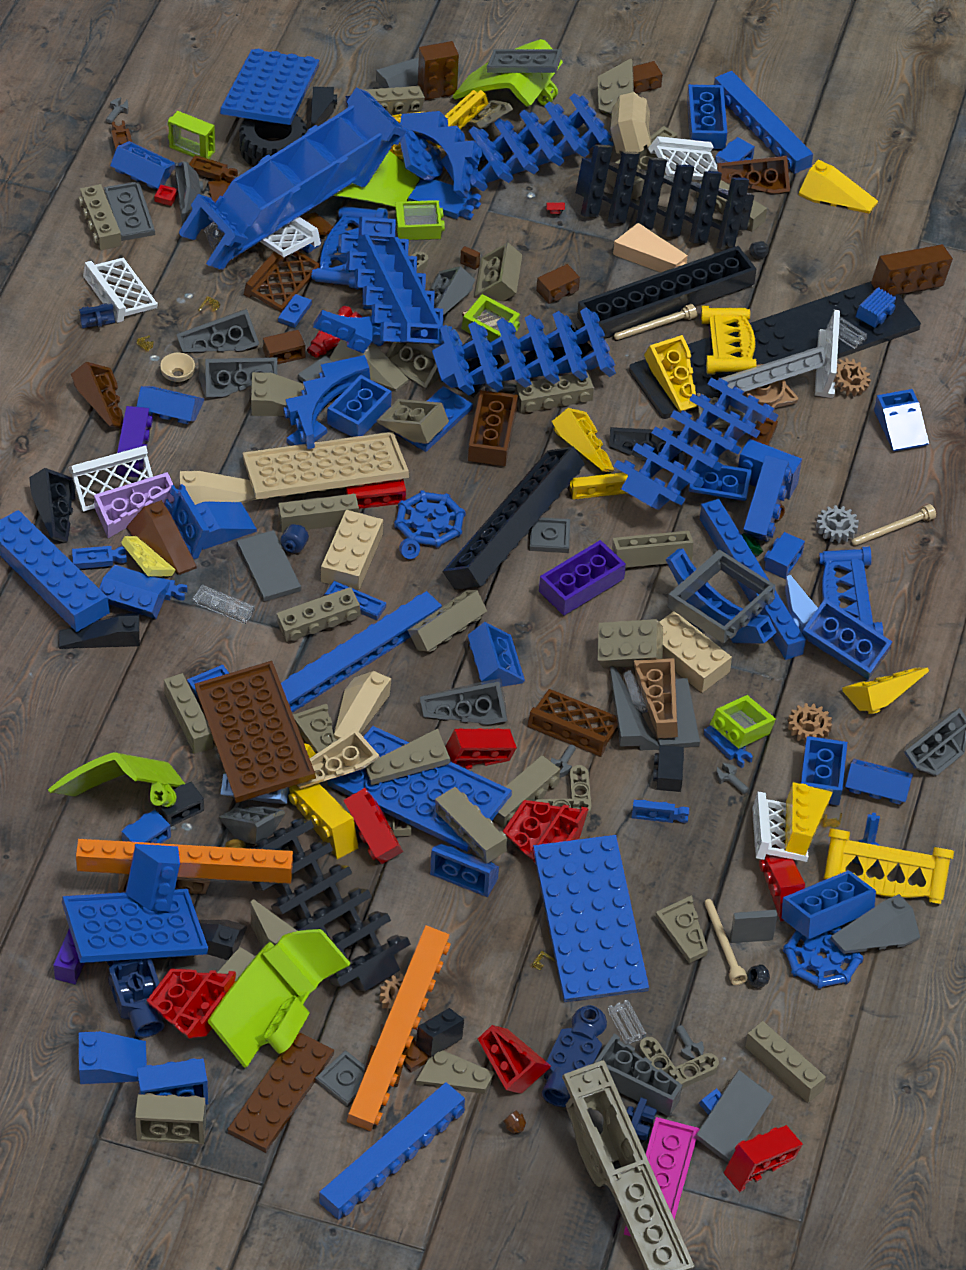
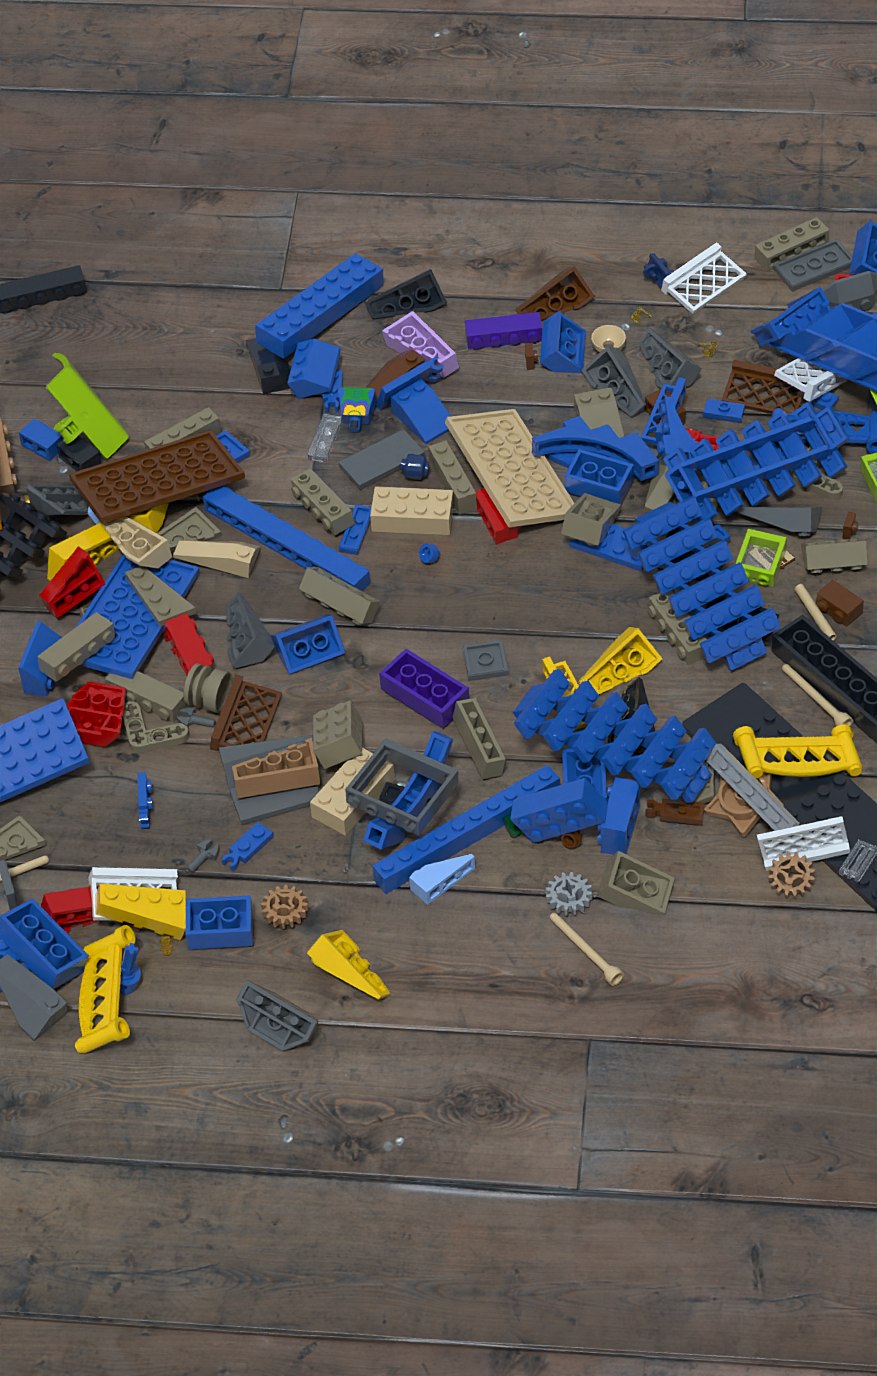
camera: 85 degrees right, 0 degrees up
(98, 556) = (354, 339): blue plate -> none
(107, 462) = (466, 322): white fence -> none
(146, 558) = (359, 369): light yellow wing -> none
(175, 429) = (530, 356): none -> reddish brown plate
(198, 567) = (357, 406): none -> torso
(216, 488) = (456, 391): tan wedge -> none
(304, 336) = (678, 393): none -> blue fence
(317, 221) = (849, 398): reddish brown piece -> none
(428, 532) = (476, 576): blue plate -> none
(492, 428) = (605, 584): reddish brown brick -> none
(513, 518) = (483, 618): black brick -> none
(540, 735) = (207, 687): none -> dark tan wheel
(555, 304) = (814, 611): none -> tan piece
(670, 768) = (199, 800): black brick -> none
(673, 370) = (739, 707): yellow wedge -> none
(742, 721) = (266, 845): lime window -> none
(784, 555) = (509, 853): blue brick -> none
(836, 480) = (635, 884): none -> dark tan slope
(846, 639) = (392, 914): blue brick -> none
(853, 562) = (428, 935): blue piece -> none
(879, 781) = (223, 974): blue slope -> none
(901, 419) = (741, 930): slope -> none

